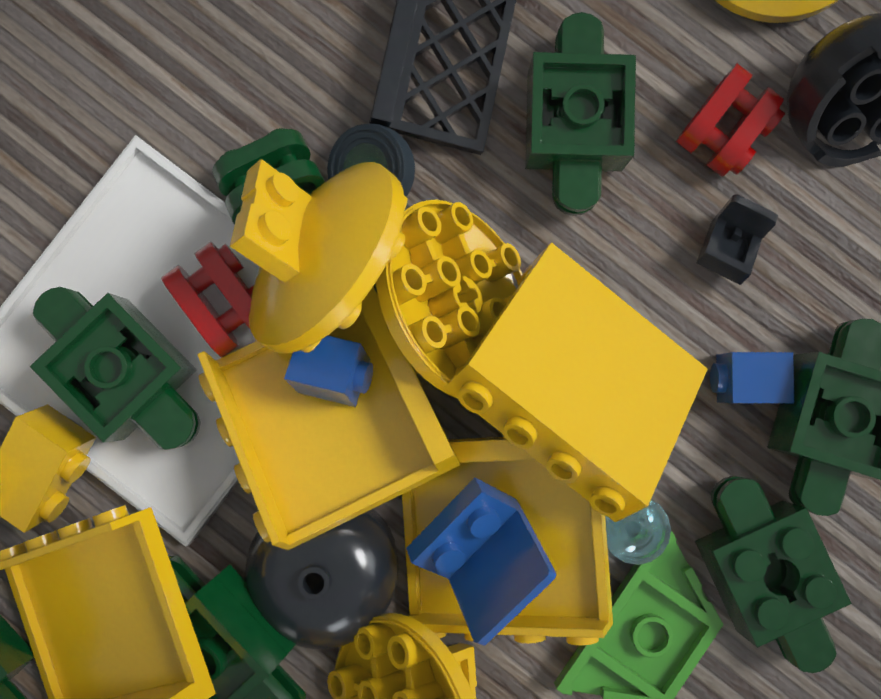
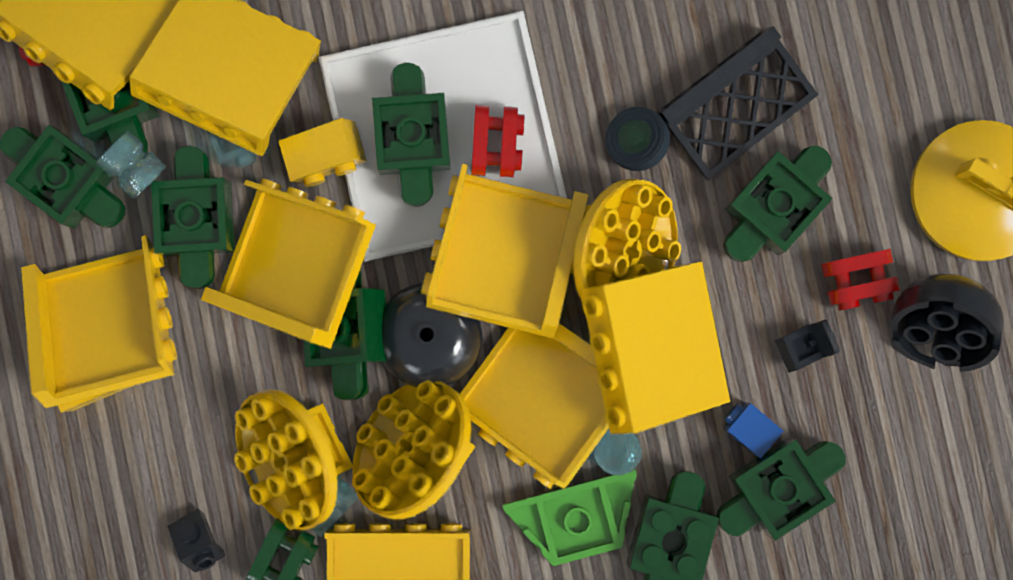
camera: 40 degrees right, 0 degrees up
(281, 149) = (577, 97): dark green brick -> none
(315, 249) = (573, 163): yellow bracket -> none
(331, 371) = (526, 230): blue brick -> none
(487, 556) = (527, 394): blue bracket -> none

